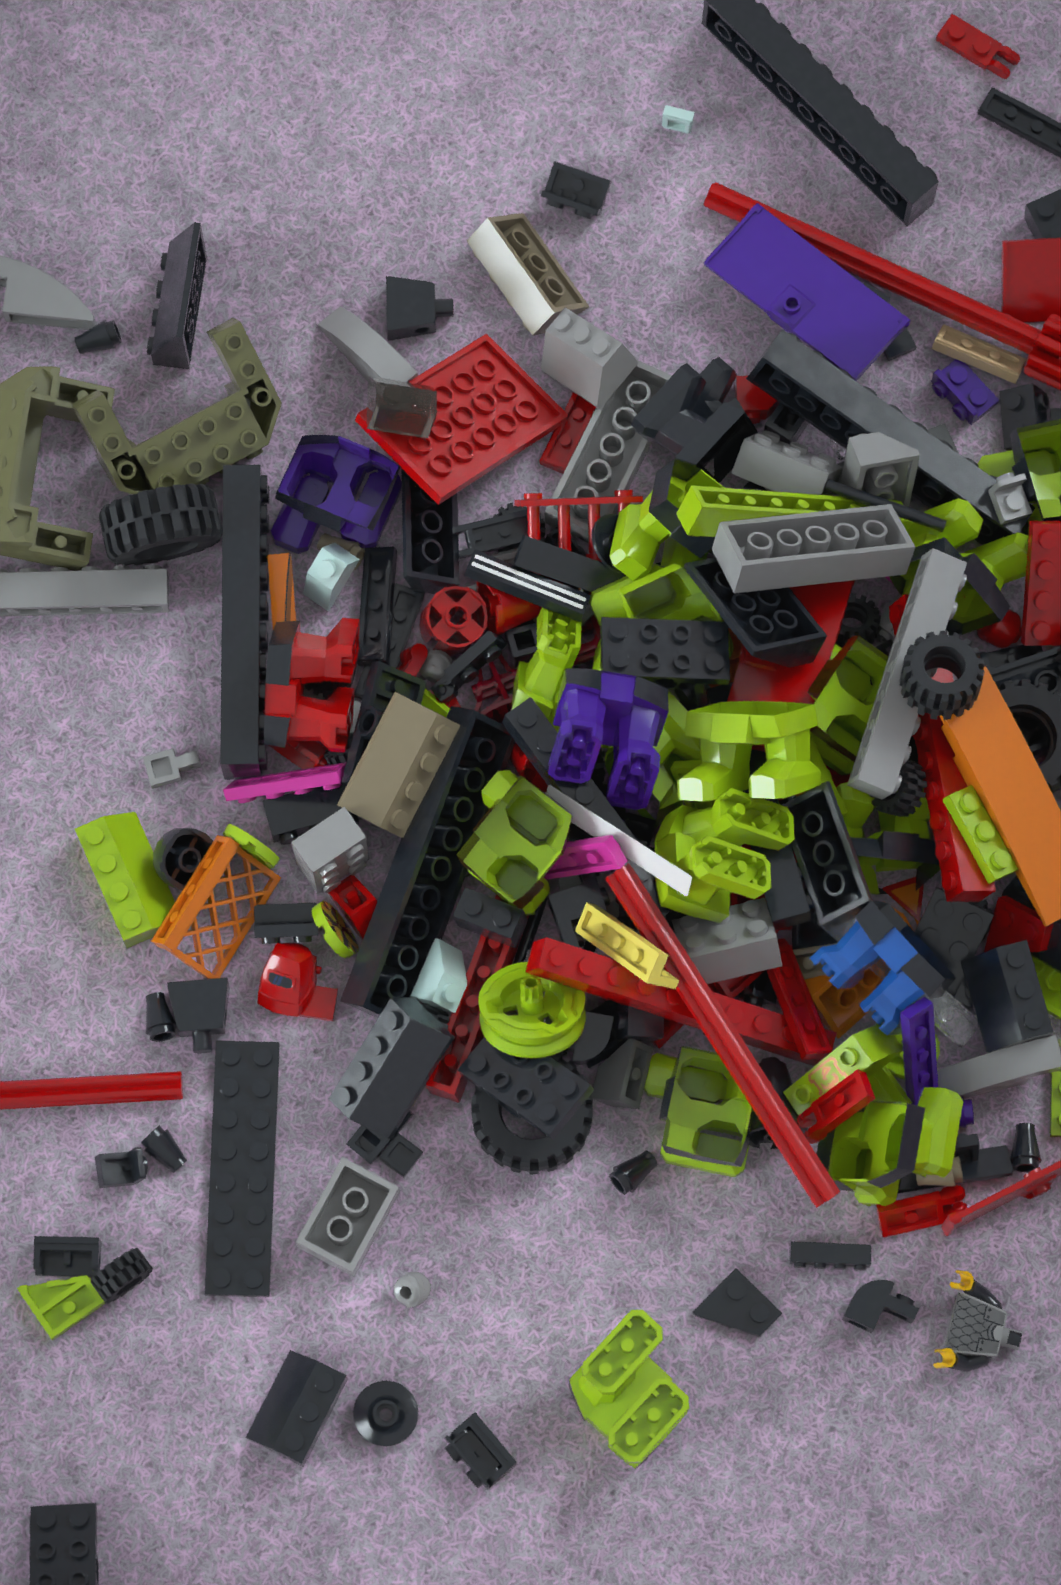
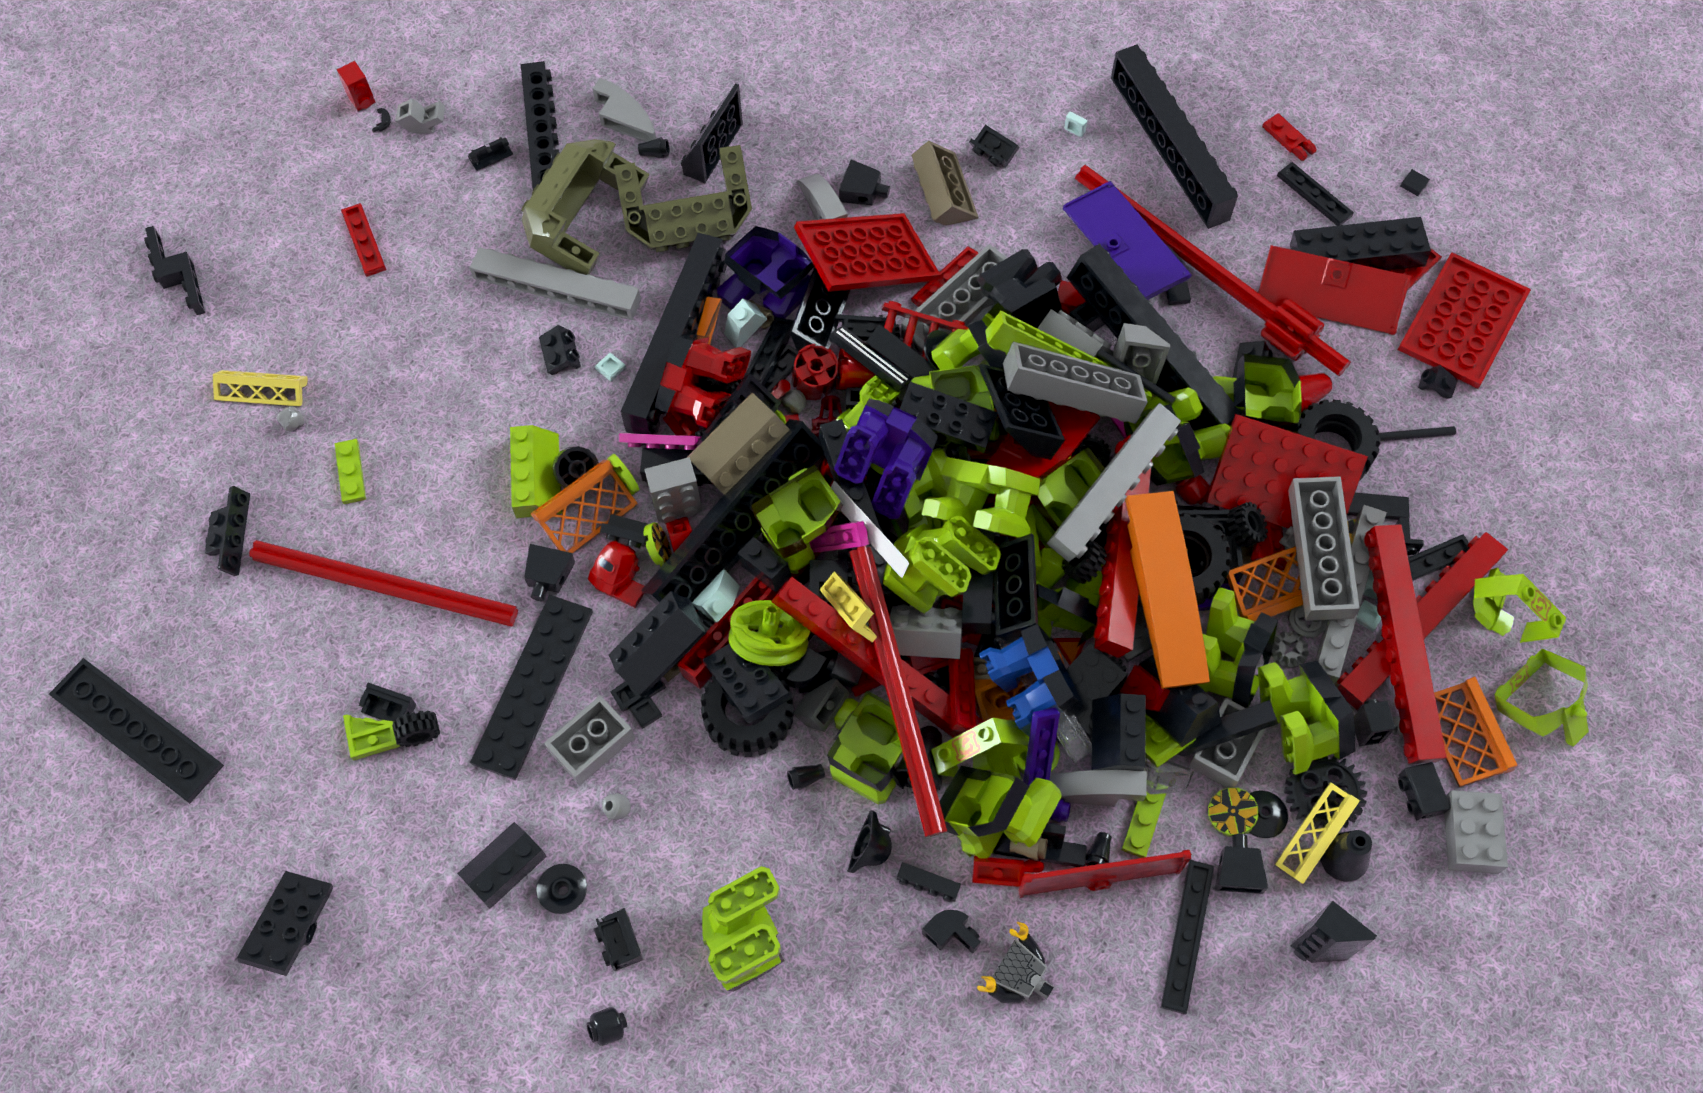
camera: 20 degrees right, 10 degrees down
(88, 690) = (559, 349): none -> black bracket
(121, 1168) = (448, 658): black bracket -> none
(159, 1020) = (516, 568): black cone -> none
(160, 524) = (642, 255): black tyre -> none
(164, 1149) = (483, 654): black cone -> none
(165, 767) = (590, 410): light grey plate -> none
(167, 692) = (610, 367): none -> light aqua tile
(401, 407) = (825, 225): clear smoke slope -> none
(467, 666) = (815, 401): black hinge -> none
(505, 1558) = (606, 1026): none -> black head
(585, 358) = (963, 239): light grey slope -> none
(739, 1306) = (848, 897): black wing -> none
(746, 1233) = (872, 844): none -> black hat
(836, 1106) = (964, 768): red hinge -> none
(945, 653) = (1135, 496): black tyre -> none
(964, 391) = (1215, 336): dark purple bracket -> none
(979, 353) = (1232, 315): tan tile -> none
(980, 834) = (1133, 607): lime plate -> none
(1009, 498) = (1225, 398): light grey bracket -> none

